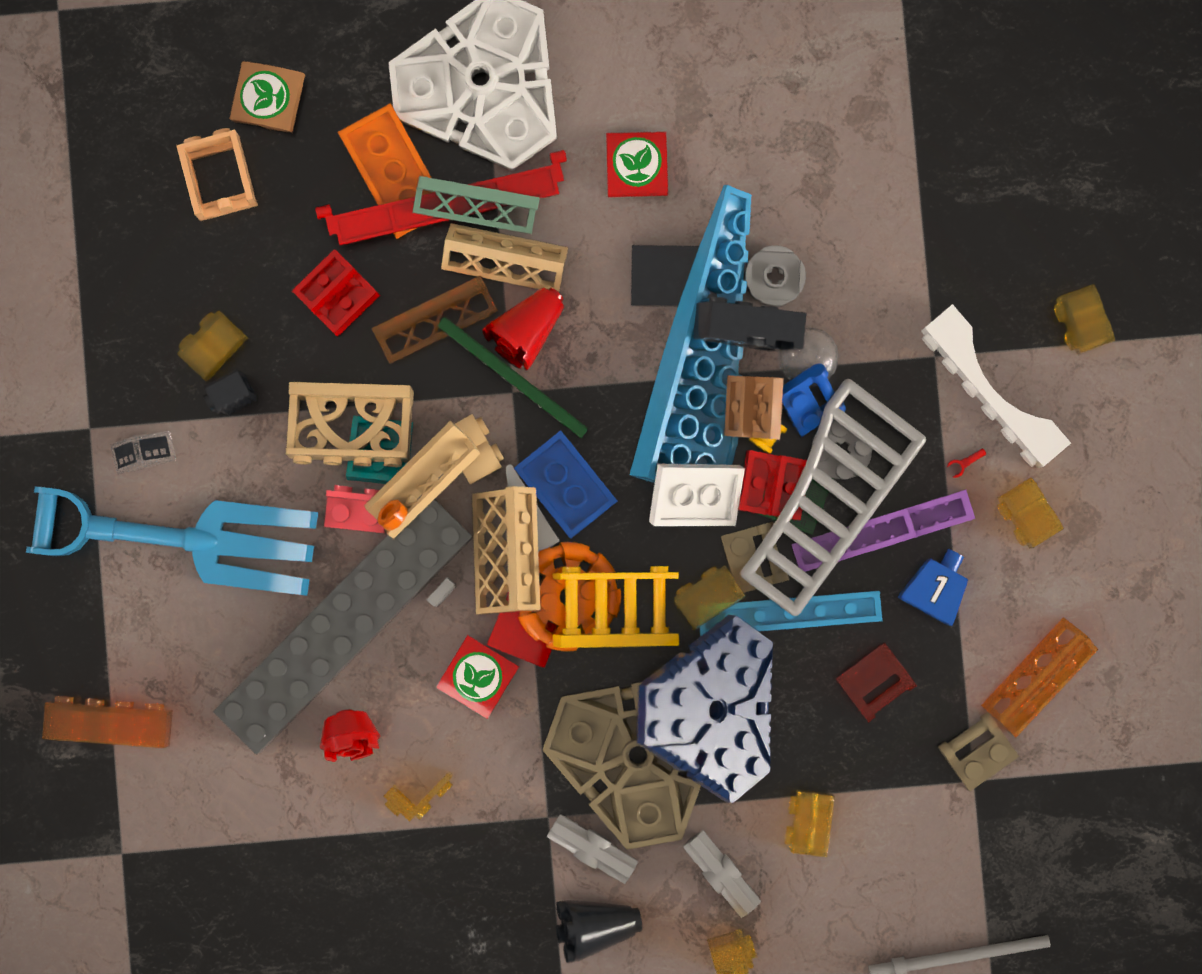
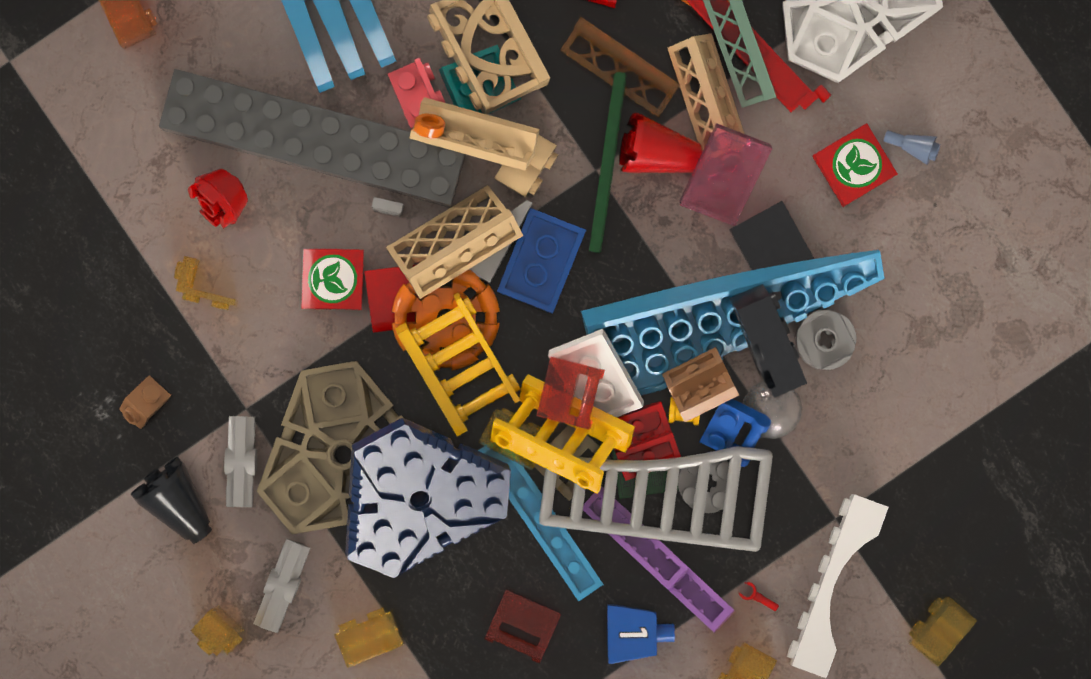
camera: 55 degrees right, 0 degrees up
(491, 904) = (144, 402): none -> medium nougat bracket
(582, 280) = (725, 174): none -> clear pink plate
(653, 98) = (921, 147): none -> sand blue cone
(690, 531) = (560, 391): none -> clear red plate
(714, 532) = (604, 427): none -> yellow fence

